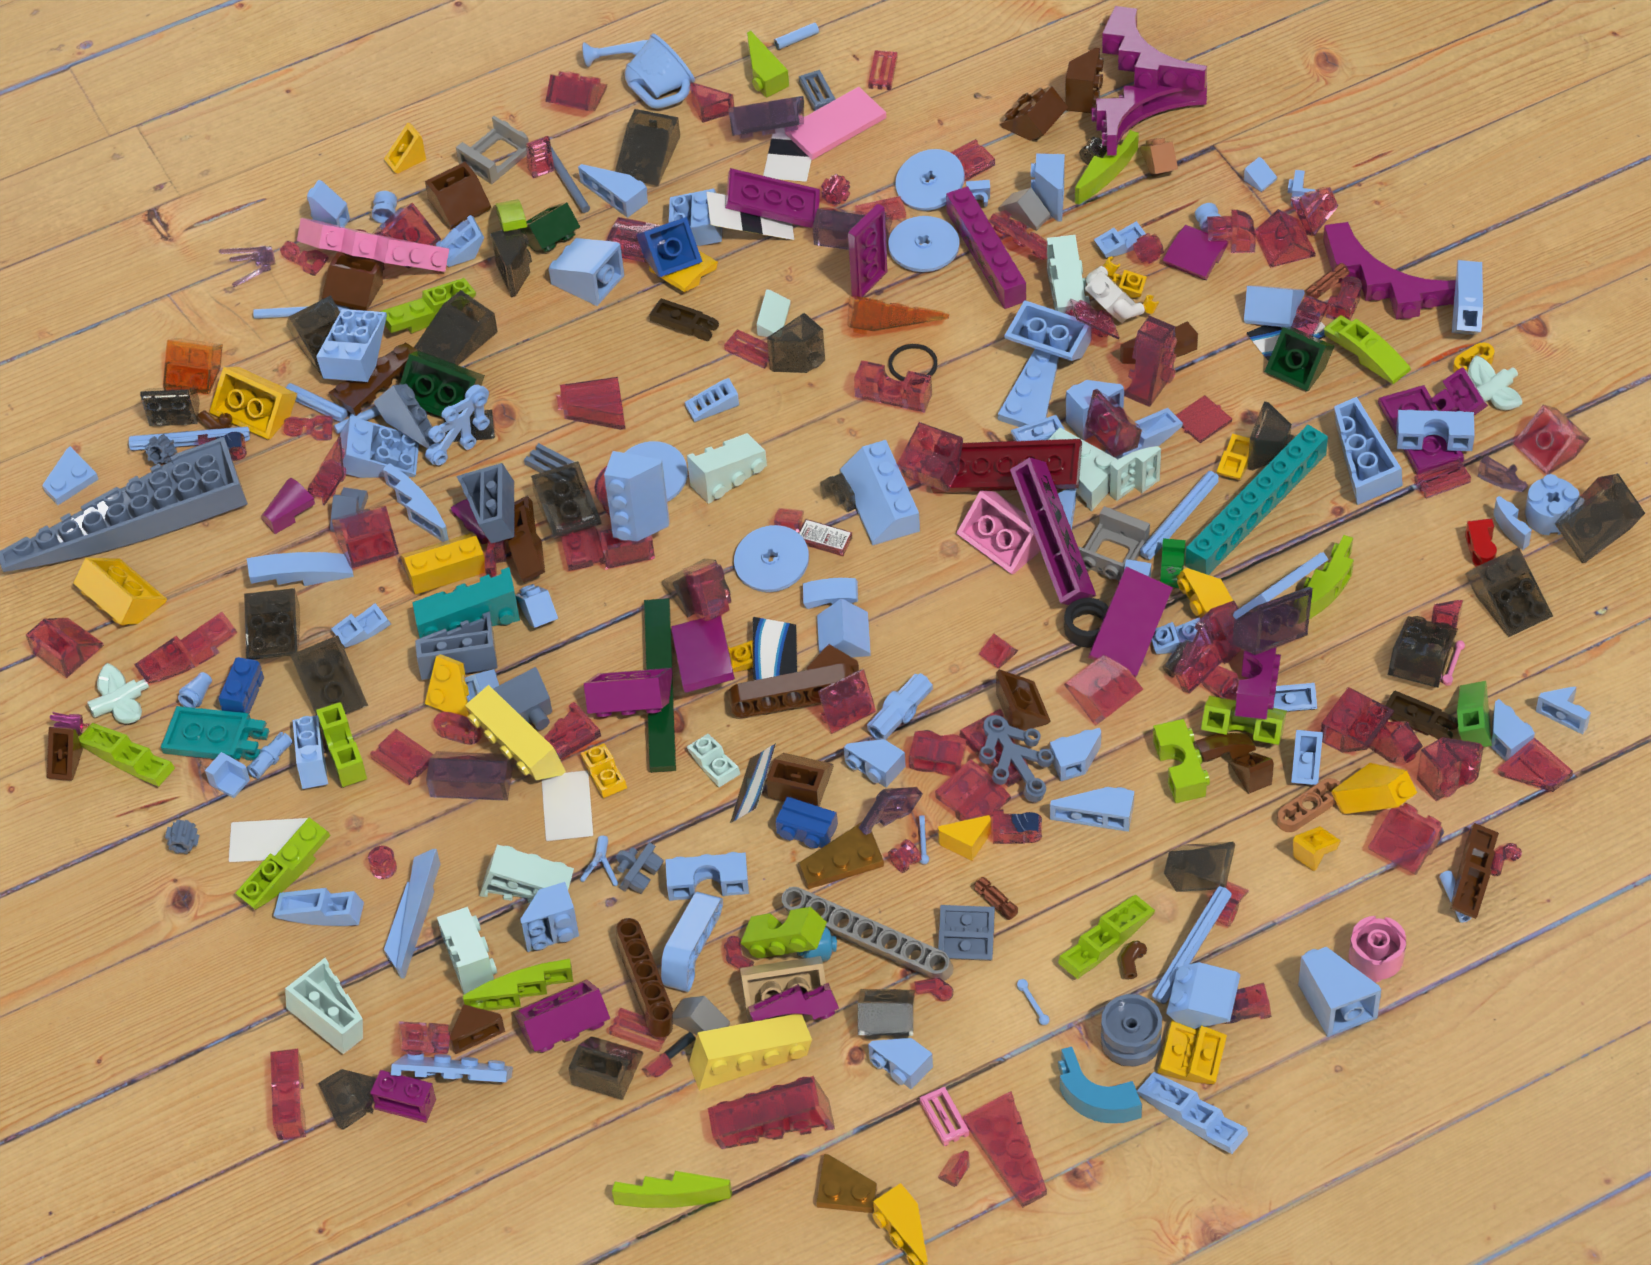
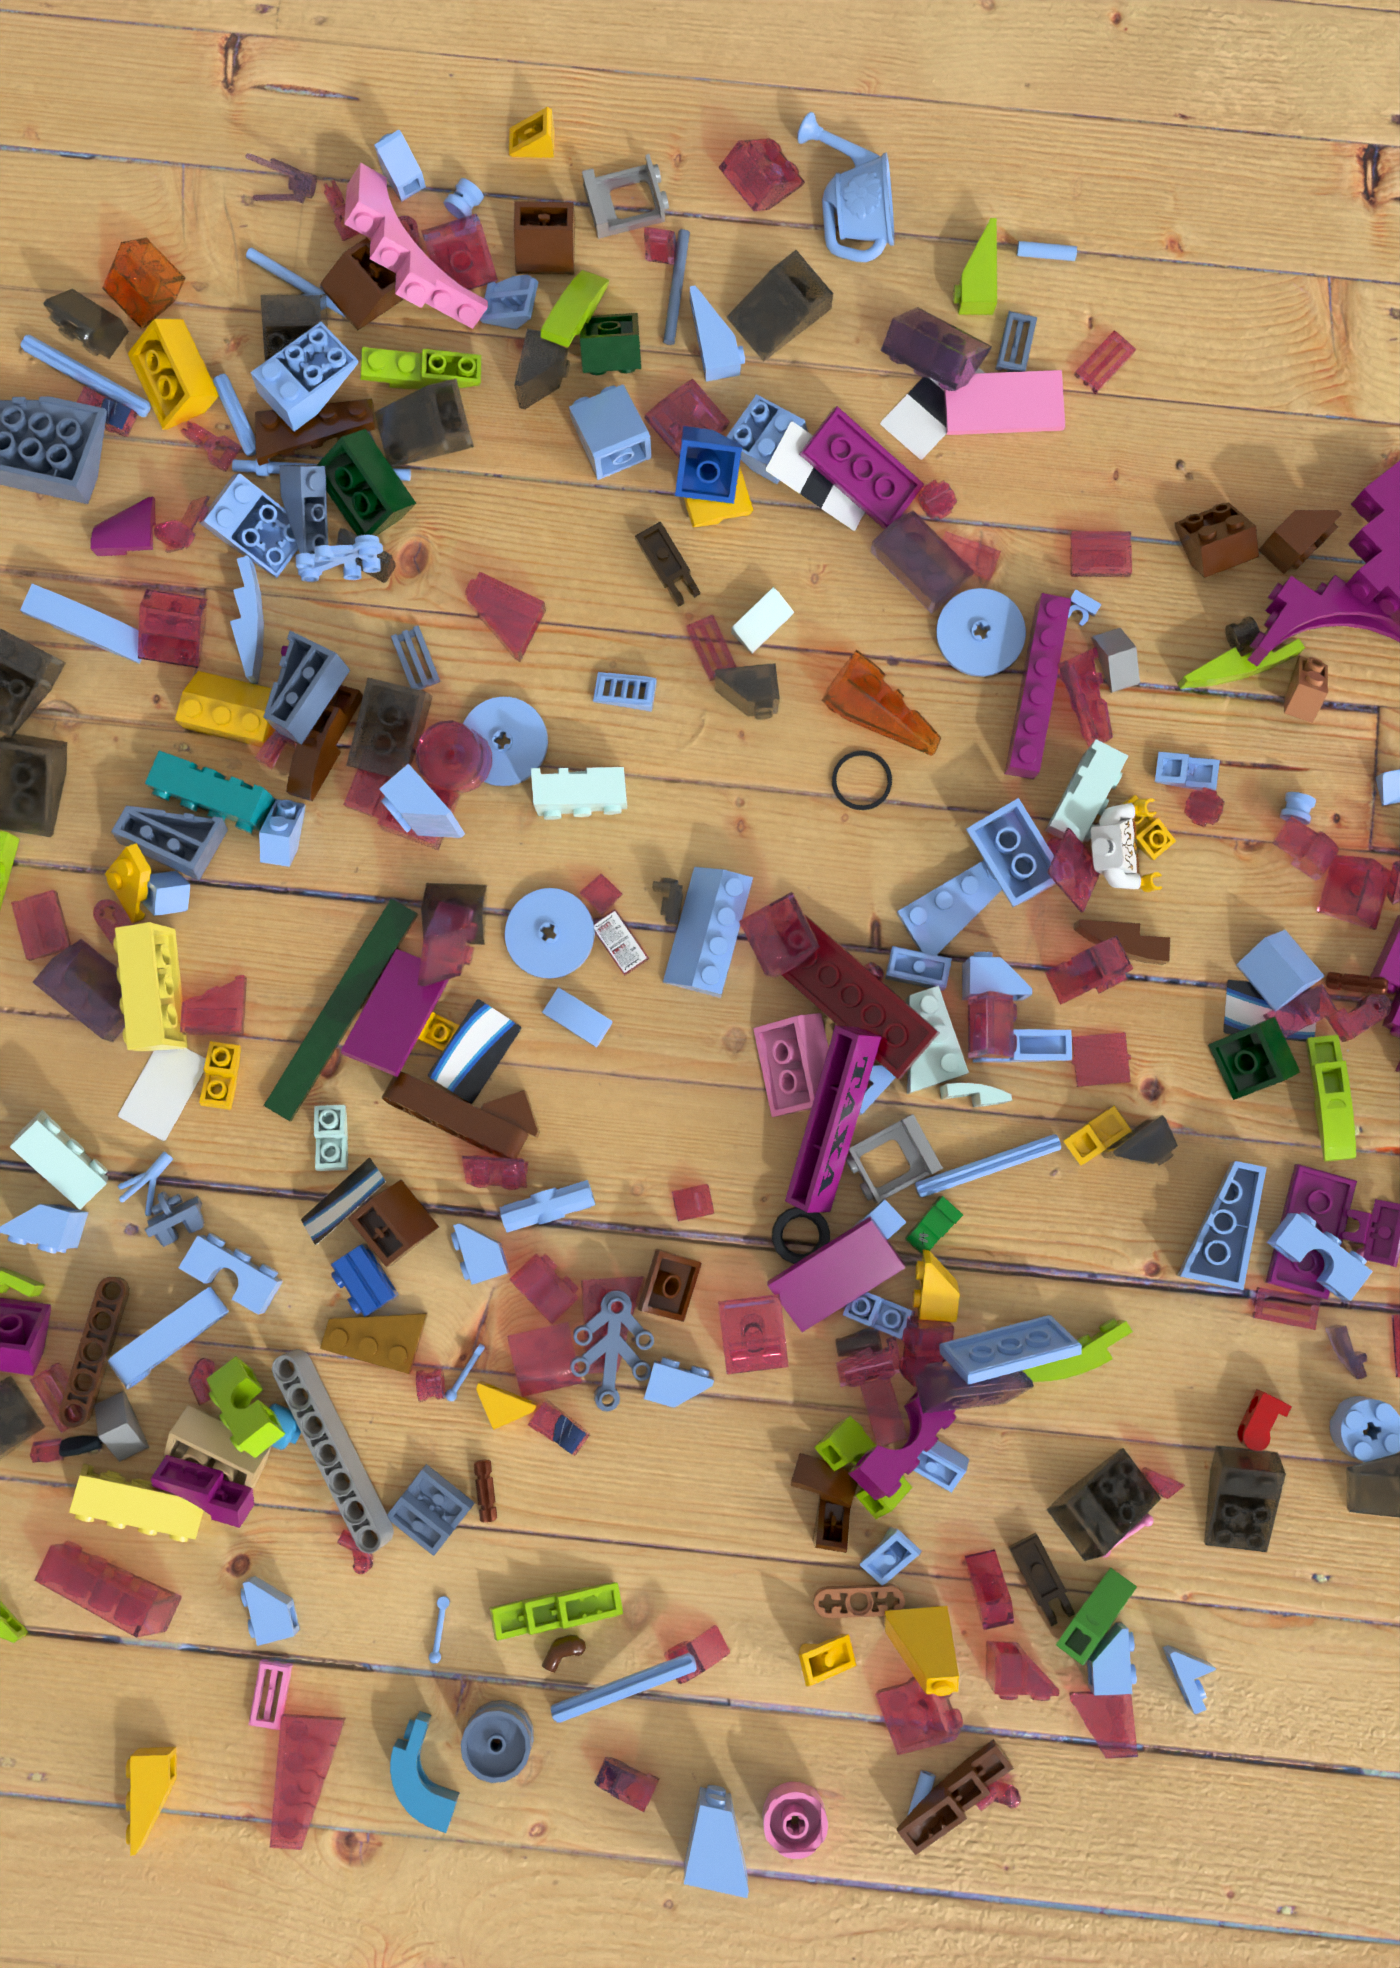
camera: 30 degrees right, 30 degrees up
(160, 456) = (43, 376): sand blue gear -> none
(210, 422) = (121, 374): reddish brown arm -> none
(348, 502) = (185, 575): sand blue slope -> none
(367, 624) = (104, 735): light blue slope -> none
(528, 697) = (198, 942): sand blue torso -> none
(628, 691) = (298, 1004): magenta slope -> none
(710, 102) = (890, 286): clear pink slope -> none
(844, 1188) = (128, 1705): pearl gold wing -> none
(845, 629) = (557, 1074): light blue slope -> none
(868, 251) = (896, 627): magenta tile -> none
(875, 385) = (815, 813): clear pink arch -> none
(886, 1013) = (292, 1547): clear smoke slope -> none
(889, 806) = (449, 1325): wing -> none
(930, 195) = (1049, 530): light blue piece -> none
(955, 1168) = (238, 1759): clear pink slope -> none
(1049, 182) = (1161, 650): light blue slope -> none
(1098, 808) = (655, 1465): light blue slope -> none
(1176, 742) = (762, 1492): lime arch -> none
(1192, 1053) = (543, 1794): yellow slope -> none
(1192, 1113) = (495, 1860): light blue slope -> none
(1194, 253) = (1248, 841): magenta slope -> none
(1199, 866) = (699, 1602): clear smoke slope -> none
(1202, 995) = (589, 1757): light blue slope -> none
(1256, 500) = (1075, 1209): teal brick -> none
(1354, 722) = (969, 1550): clear pink slope -> none
(1506, 517) = (1311, 1407): light blue slope -> none

